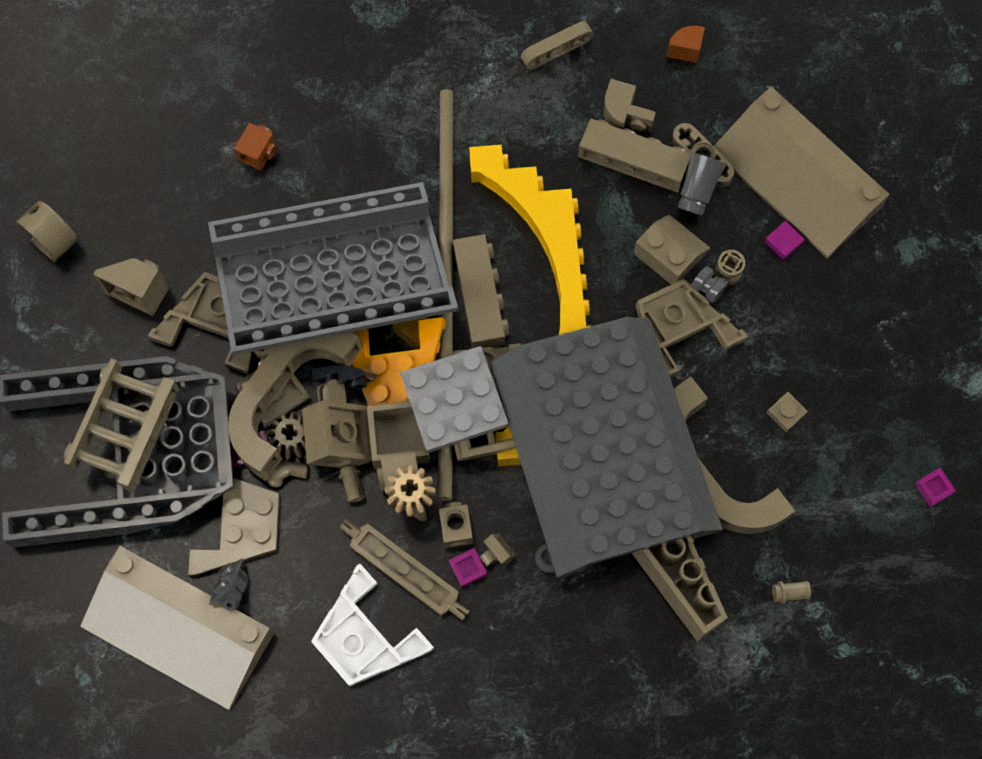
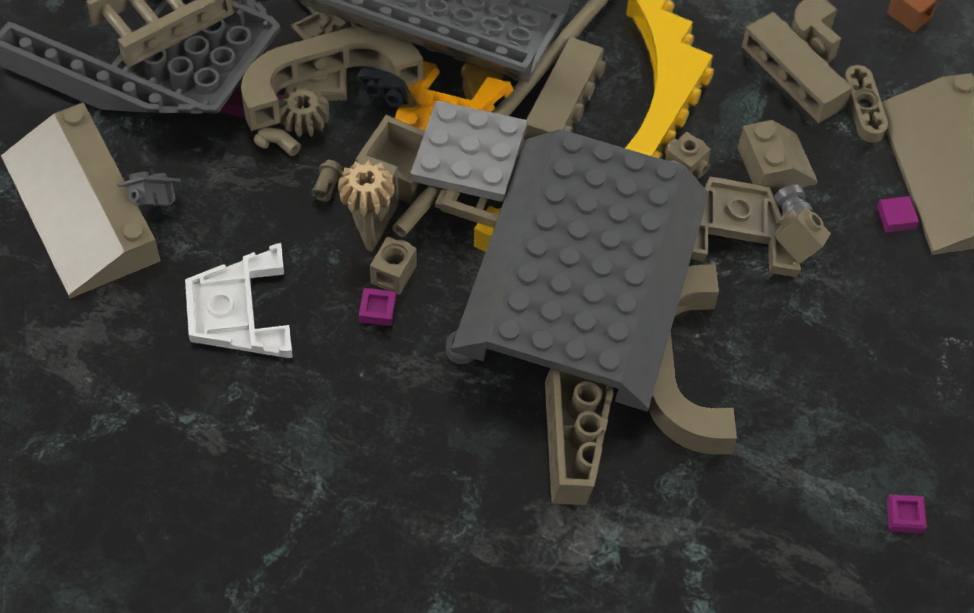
camera: 30 degrees right, 15 degrees down
(247, 528) = (207, 162): wing -> none
(336, 430) = (342, 120): dark tan brick -> none
(404, 569) = (318, 275): dark tan plate -> none
(498, 550) = (416, 308): dark tan tile -> none
(609, 293) = (689, 152): none -> dark tan brick
(700, 182) = (844, 115): dark grey plant -> none
(729, 271) = (826, 200): dark tan wheel -> none
(734, 308) = (801, 233): none -> dark tan brick
(787, 412) = (794, 358): dark tan plate -> none
(791, 591) = (682, 515): dark tan pin -> none

